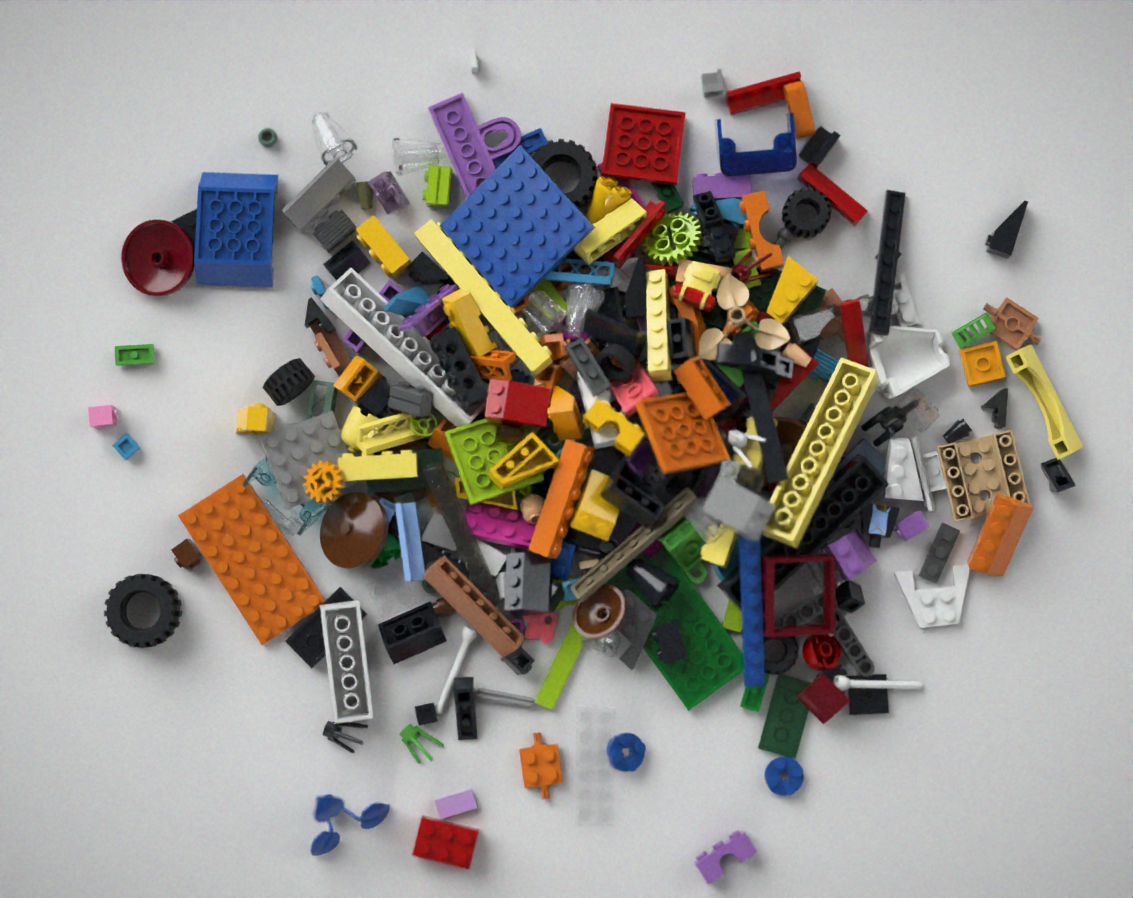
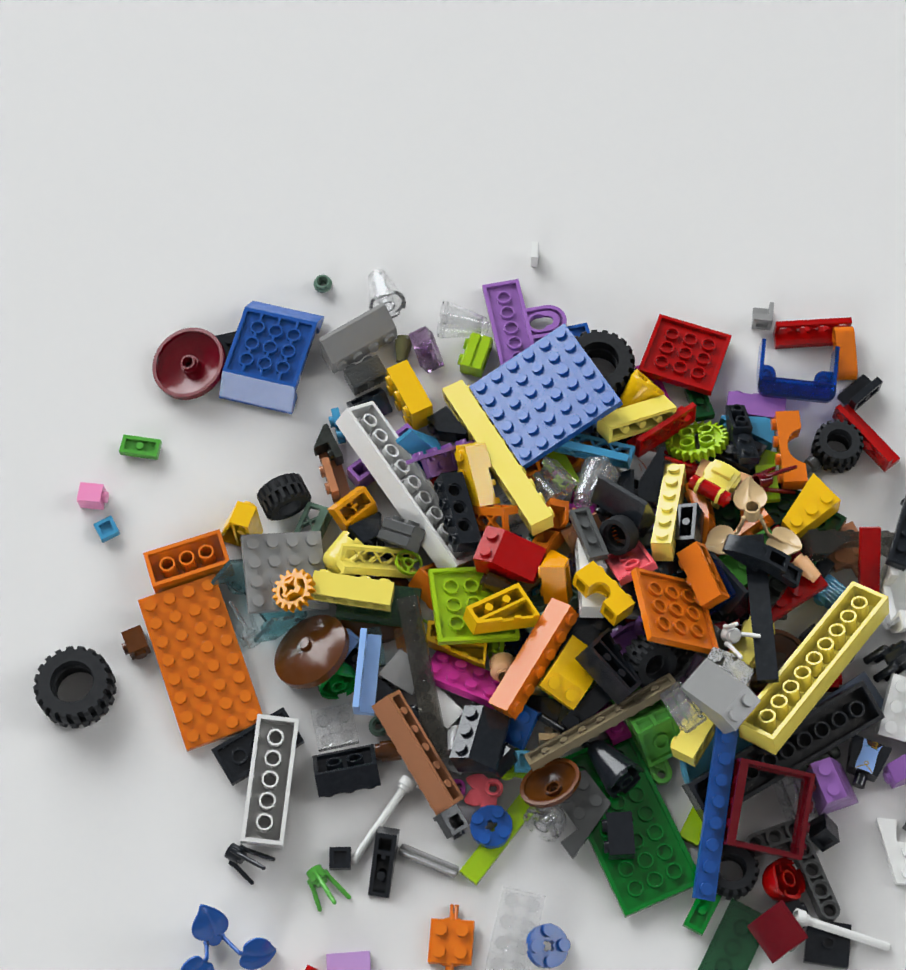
camera: 10 degrees right, 20 degrees down
(214, 466) = (186, 561): none -> orange slope
(543, 654) = (484, 836): none -> blue plate

